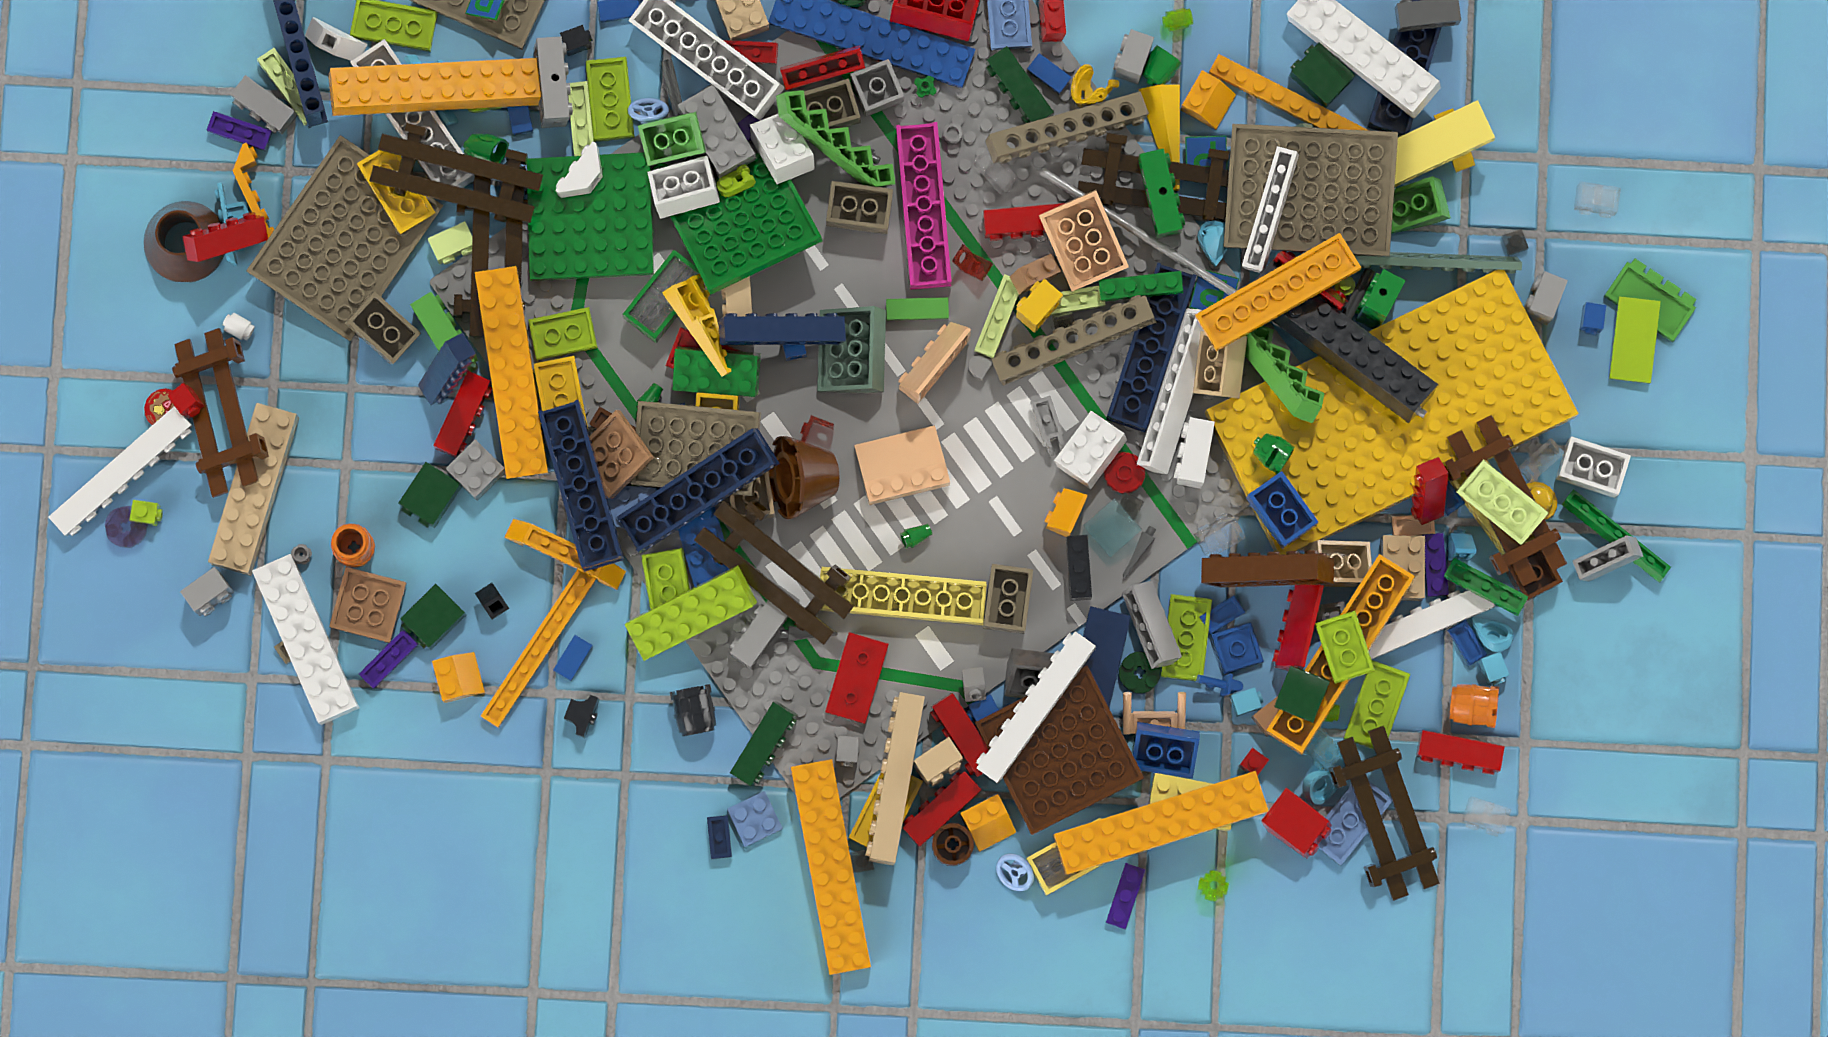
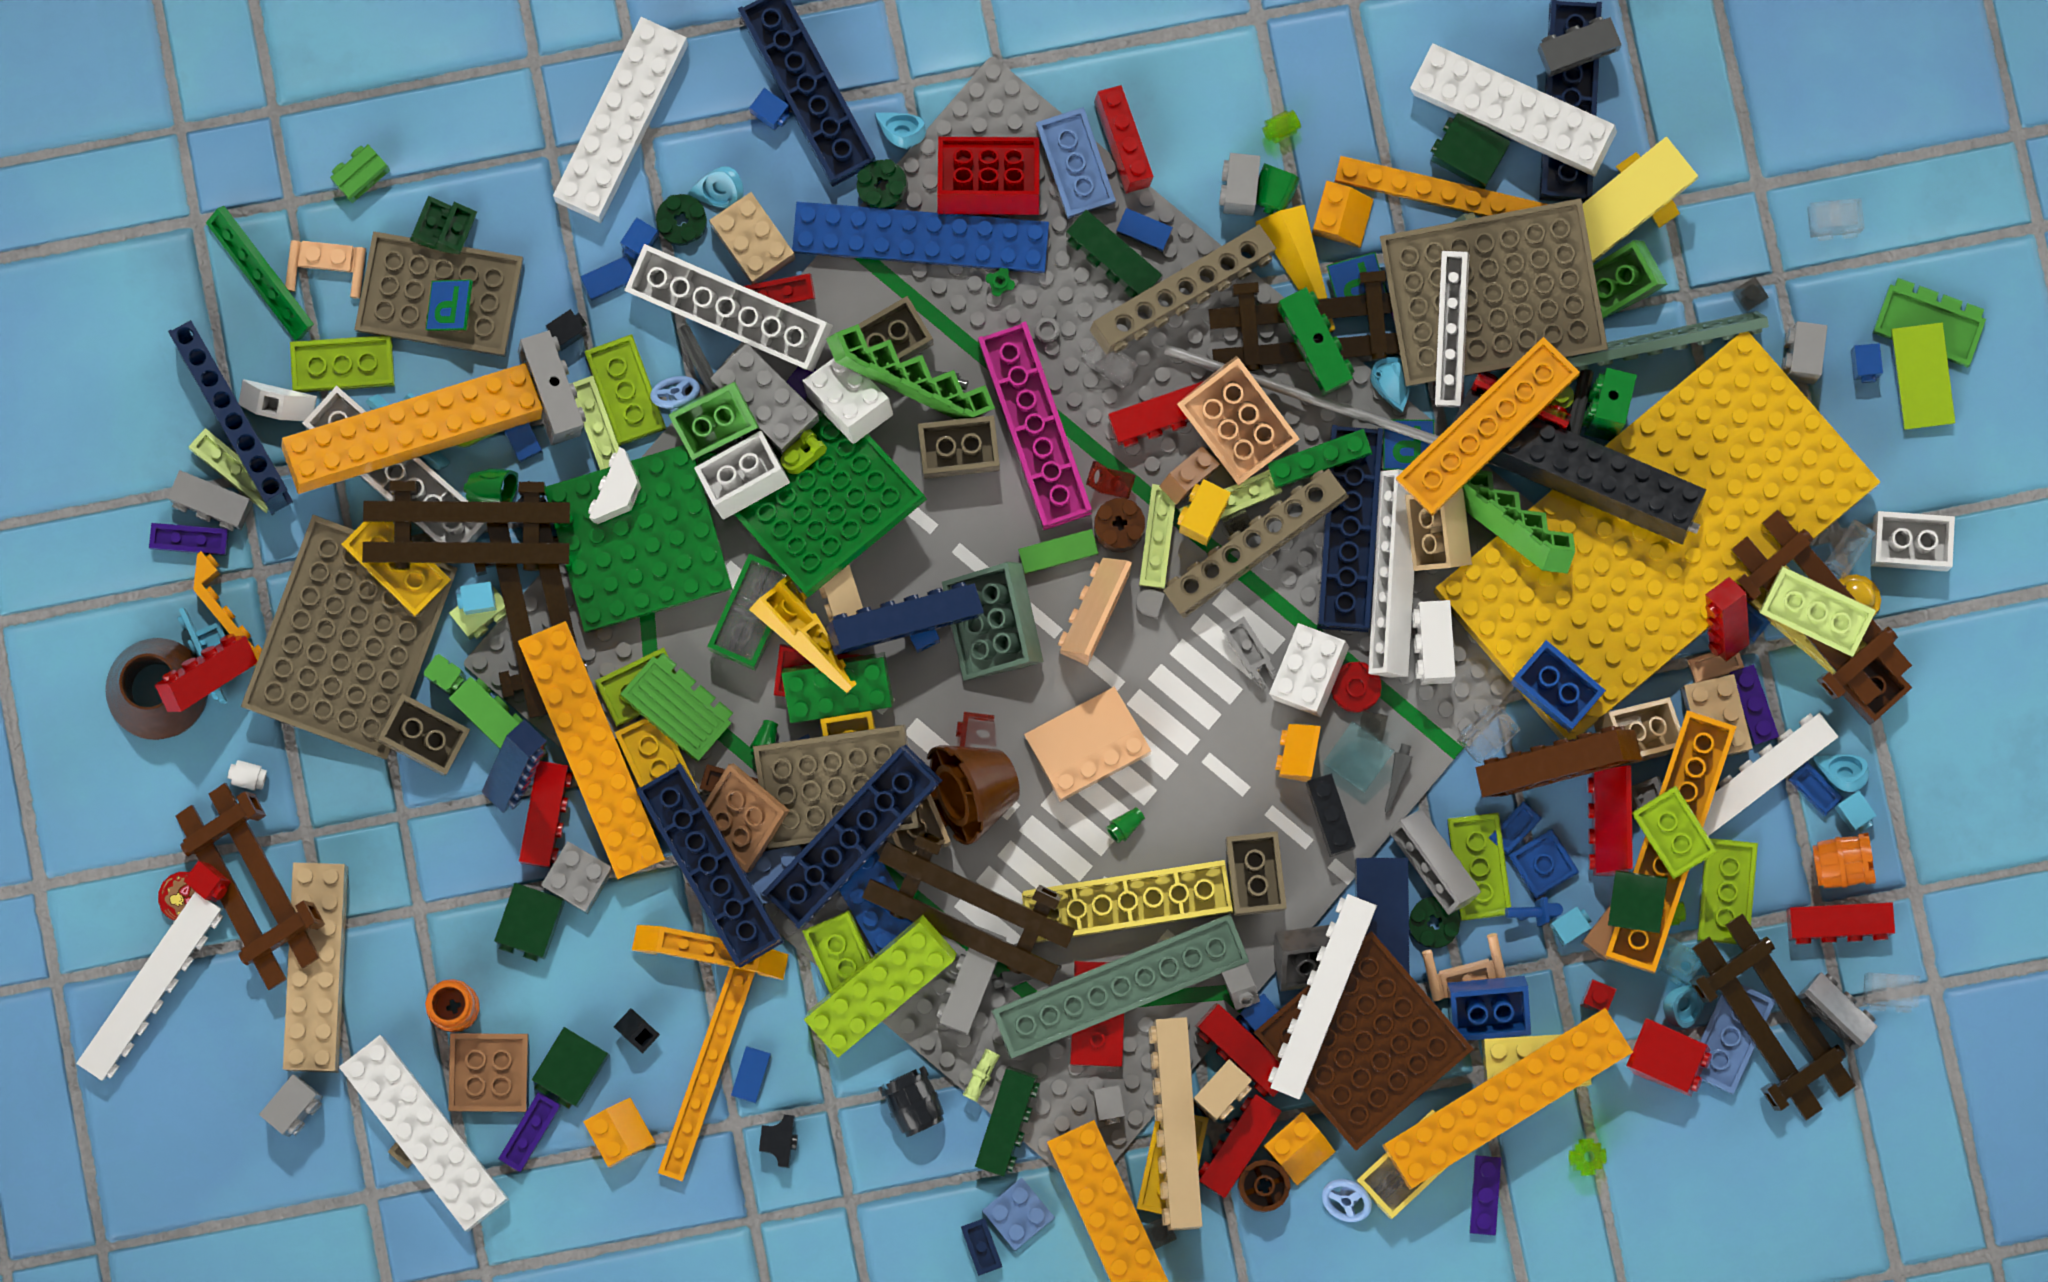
camera: 10 degrees left, 0 degrees up
(114, 529) = (166, 1037): clear purple plate -> none
(146, 512) = (192, 1028): lime bracket -> none
(301, 548) = (388, 1026): light grey plate -> none
(411, 285) = (444, 674): none -> bright green brick
(452, 232) = (477, 598): none -> medium azure brick
(586, 357) = (676, 708): none -> bright green hinge
(753, 702) = (981, 1075): none -> yellowish green pin
(822, 67) = (872, 289): red brick -> none
(877, 87) = (943, 297): light grey brick -> none
(879, 660) = (1120, 986): none -> sand green plate
(960, 306) = (1128, 513): none -> reddish brown brick
(1081, 82) = (1186, 230): yellow helmet -> none
(1273, 451) = (1529, 619): green helmet -> none
(1440, 820) = (1838, 1010): none -> flat silver slope
(1461, 546) = (1779, 675): dark azure slope -> none
(1486, 586) = (1822, 717): green plate -> none
(1607, 558) = (1958, 646): light grey brick -> none
(1612, 531) = (1960, 616): green plate -> none

